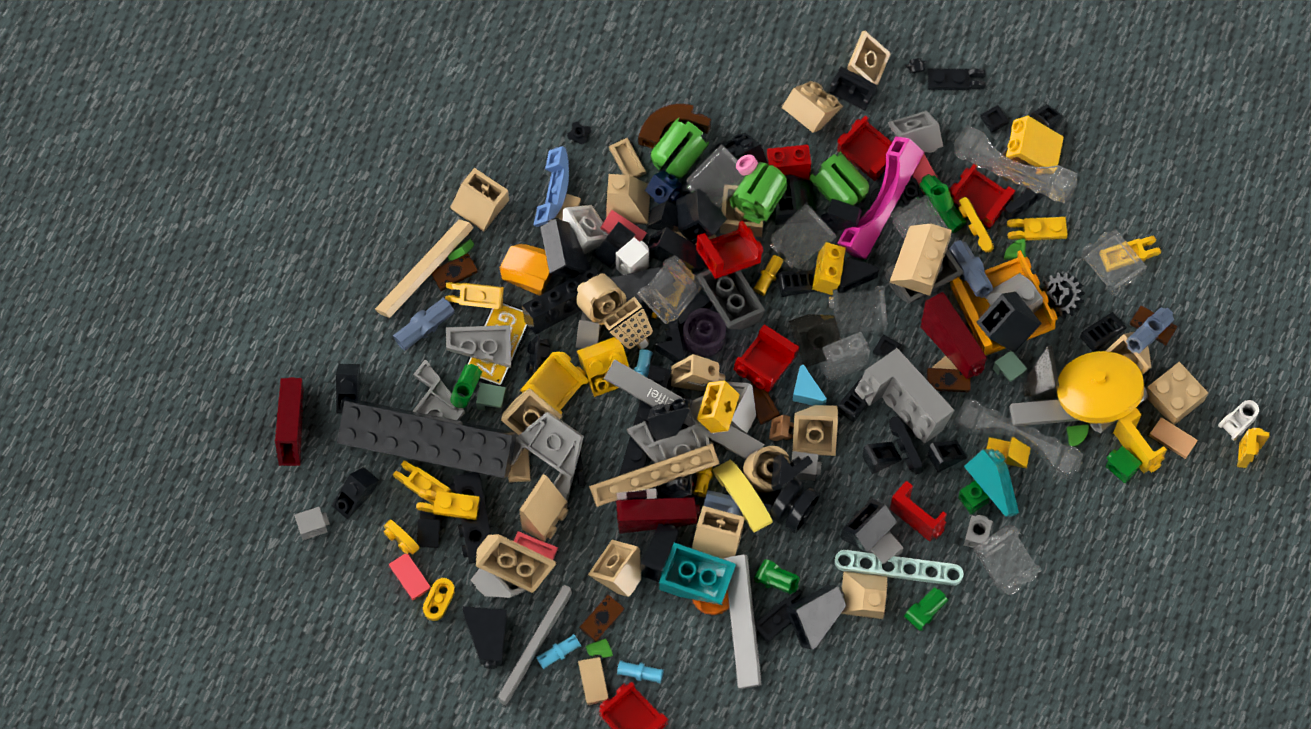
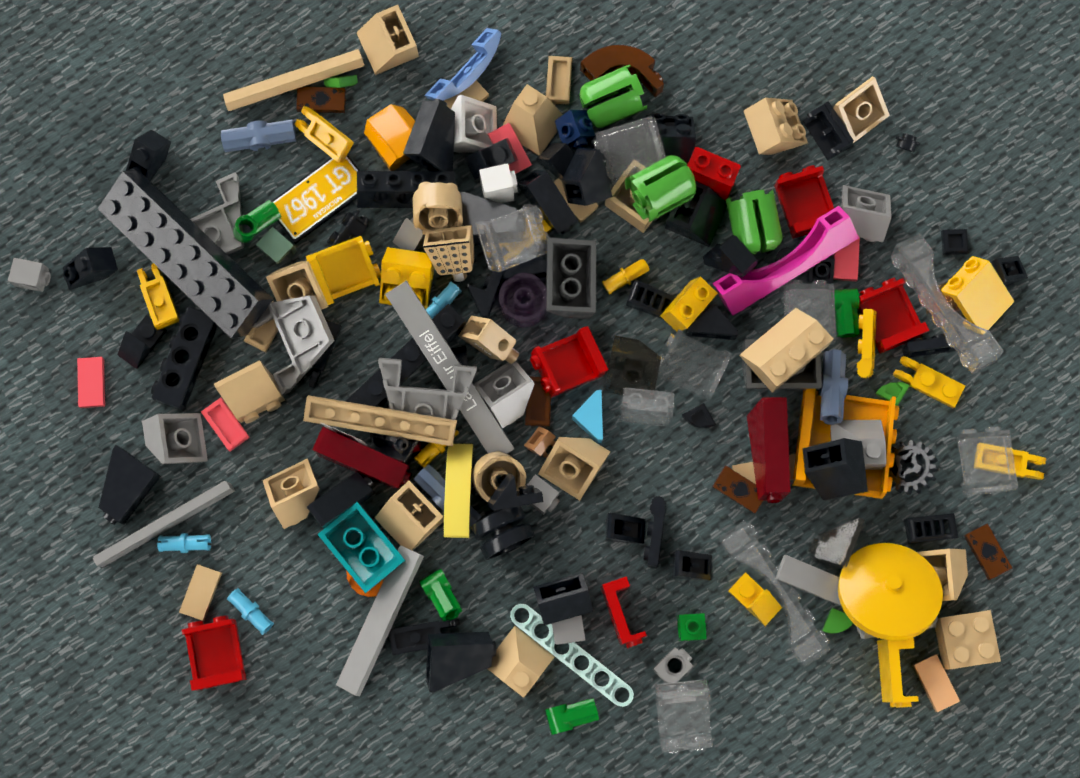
camera: 30 degrees right, 10 degrees up
(289, 422) = (69, 160): dark red slope -> none
(405, 542) = (105, 347): yellow plate -> none
(438, 600) = (102, 420): yellow plate -> none
(450, 504) = (166, 335): yellow hinge -> none
(481, 342) = (300, 187): light grey wing -> none
(513, 562) = (185, 430): tan slope -> none
(579, 138) = (527, 33): black plate -> none
(599, 648) = (225, 564): bright green tile -> none
(601, 618) = (247, 533): reddish brown tile -> none
(668, 418) = (426, 371): black slope -> none
(718, 406) = (483, 387): yellow brick -> none
(730, 251) = (596, 231): red panel -> none
(746, 165) = (663, 152): bright pink tile -> none
(801, 236) = (679, 256): clear panel -> none
(848, 412) = (622, 470): black slope -> none
(907, 394) = (687, 482): light grey hinge -> none
(937, 193) = (846, 288): green piece -> none
(955, 79) = (938, 178): black hinge -> none
(994, 478) = (720, 625): teal slope -> none
(1010, 366) = (811, 512): sand green panel -> none
(1123, 464) = (866, 681): green brick -> none
(1150, 330) = (979, 560): sand blue piece -> none
(1237, 422) = (1013, 706): white piece -> none
(1250, 445) = (1009, 744): yellow bracket -> none

